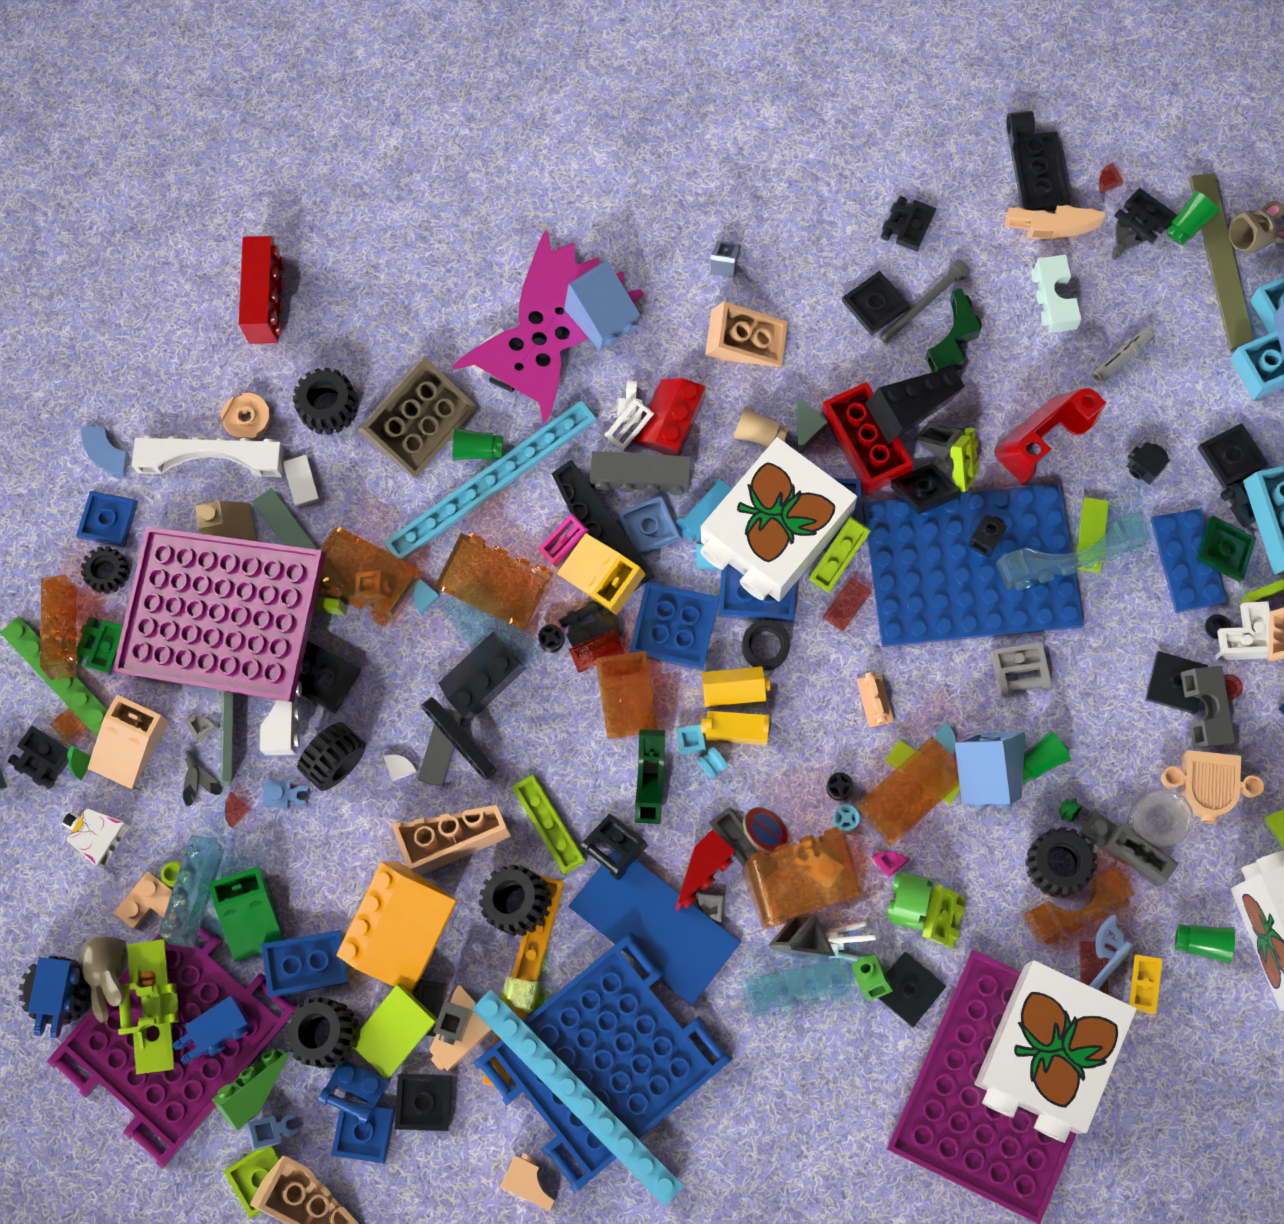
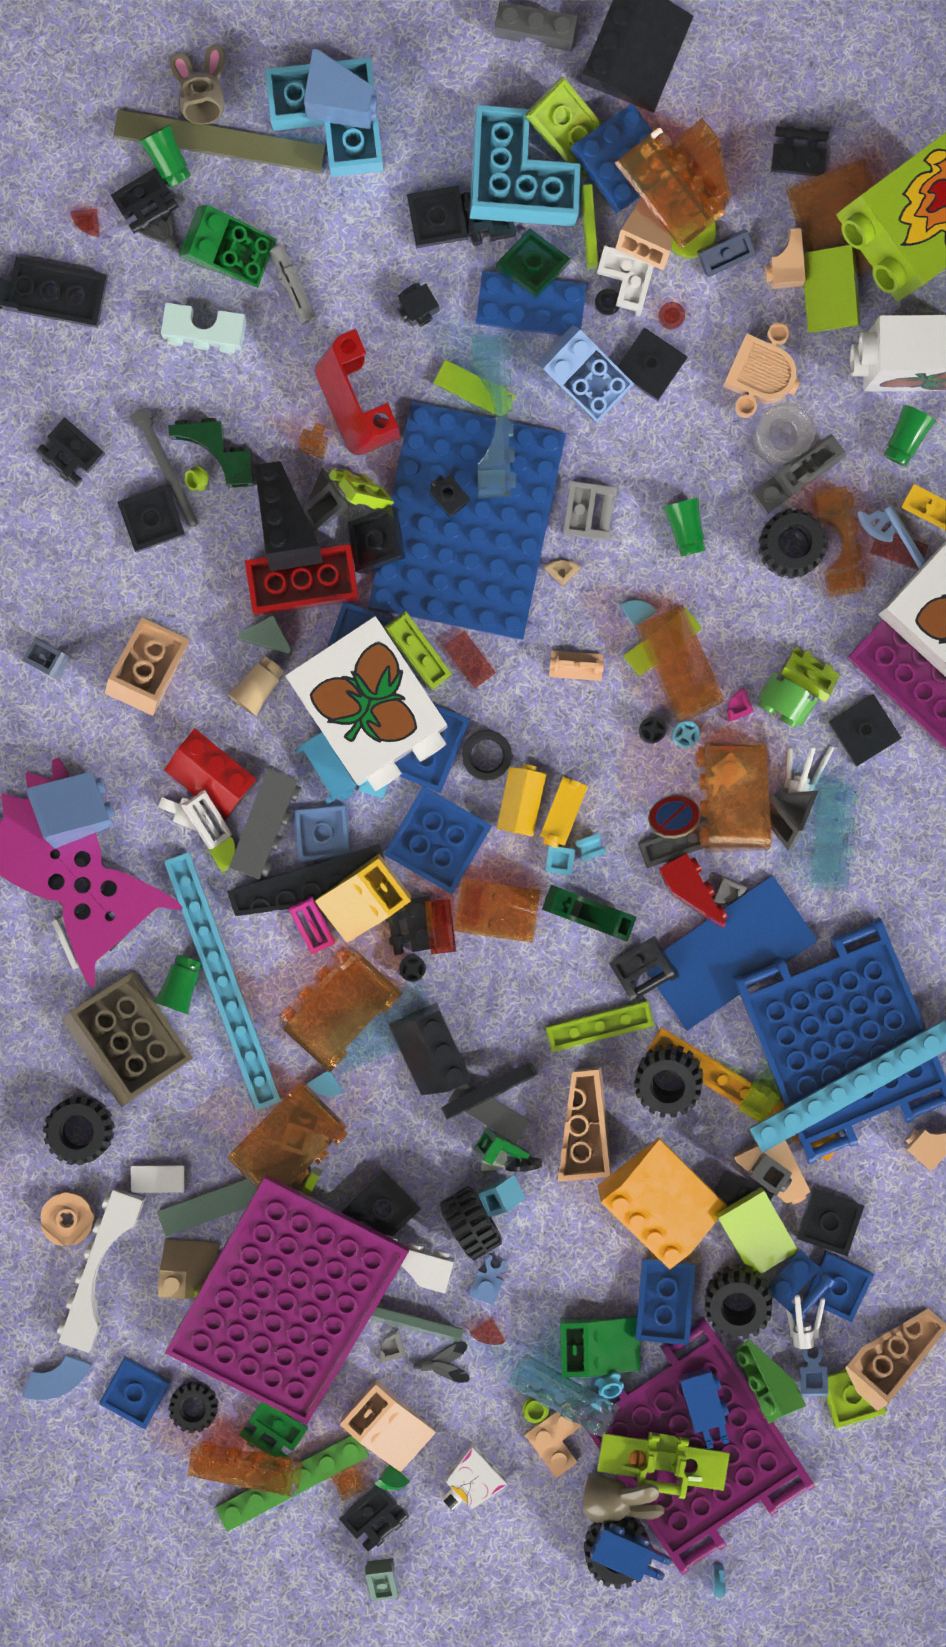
camera: 80 degrees left, 15 degrees up
(49, 1099) = (718, 1580): none -> medium azure tile
(212, 933) = (609, 1385): none -> medium azure plate
(307, 1108) = (802, 1332): none -> white plant
(364, 779) = (501, 1196): none -> medium azure brick
(400, 787) = (492, 1143): none -> green piece
(603, 445) = (224, 853): none -> lime tile
(871, 977) = (845, 762): bright green brick -> none
(923, 328) = (196, 478): none -> lime plate
(957, 662) = (562, 570): none -> tan tile
(991, 768) = (683, 577): slope -> none
(992, 412) = (314, 441): none -> clear orange tile
(1062, 224) = (124, 288): light nougat slope -> none
(1070, 810) = (743, 515): green plate -> none
(1134, 292) = (227, 246): none -> green slope
(1144, 625) = (585, 373): none -> light blue slope
(1210, 688) = (709, 345): dark grey arch -> none

